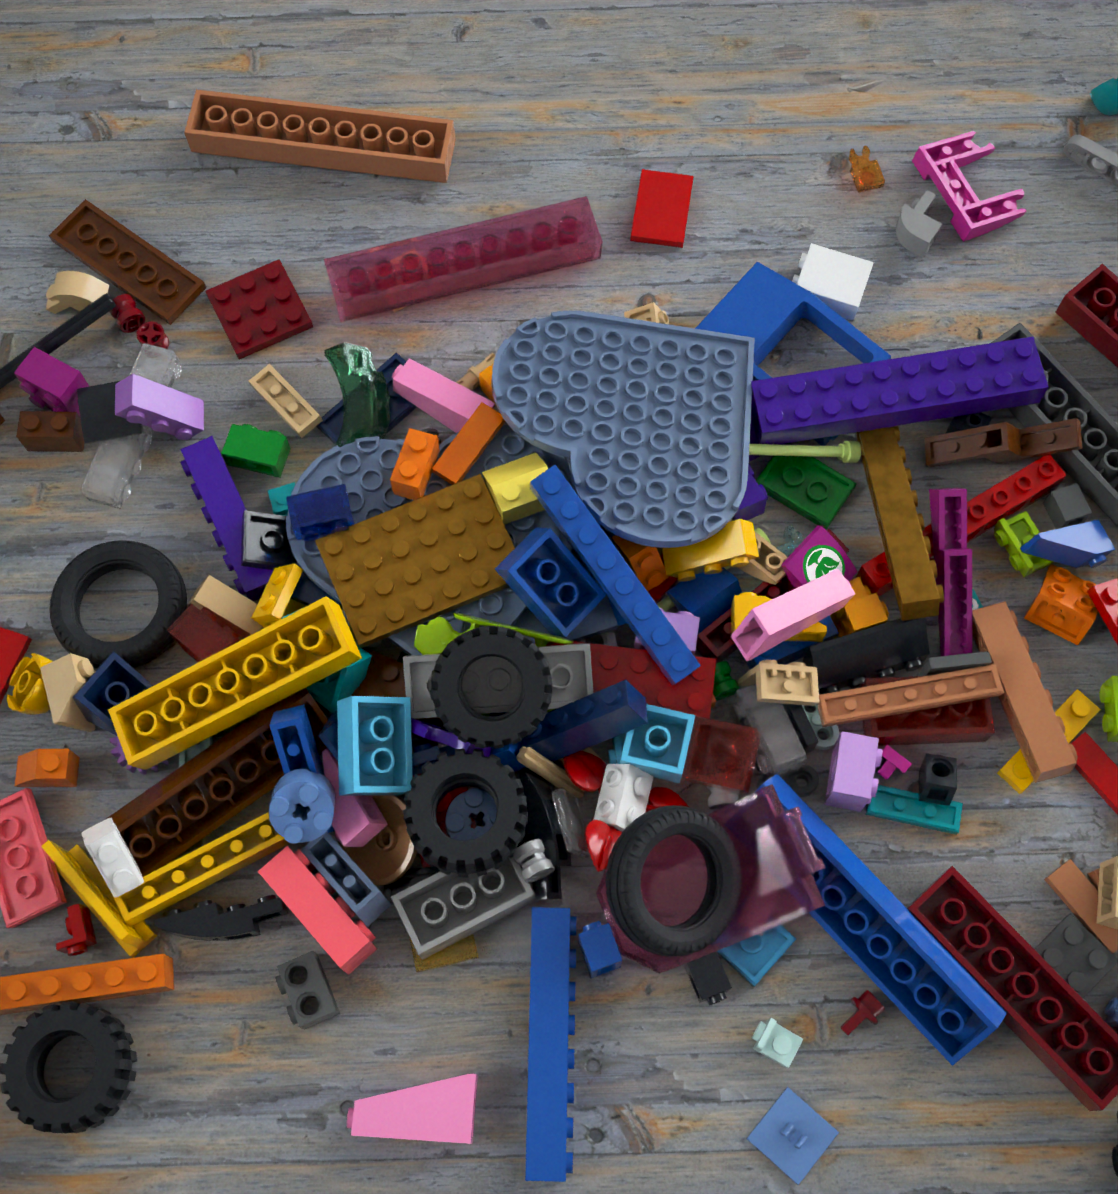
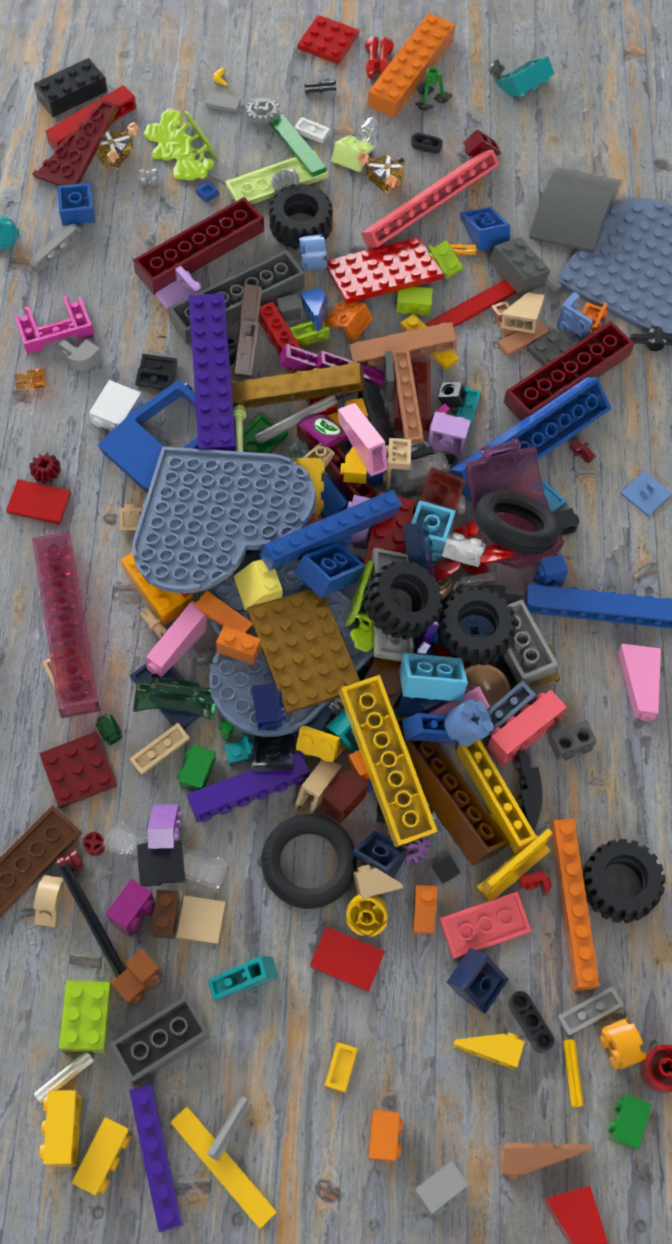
camera: 90 degrees left, 5 degrees down
(47, 478) = (201, 920): none -> tan tile
(106, 799) = (445, 869): none -> black tile
(112, 857) = (499, 839): white brick -> none
(314, 335) = (109, 729): none -> dark green brick
(533, 861) = (507, 593): light grey wheel -> none
(714, 206) = (45, 468): none -> dark red gear
(776, 1042) = (598, 494): light aqua bracket -> none
(842, 529) = (296, 419): none -> light grey axle
(907, 329) = (156, 371): none -> black slope
(1067, 342) = (178, 289): none -> lavender bracket

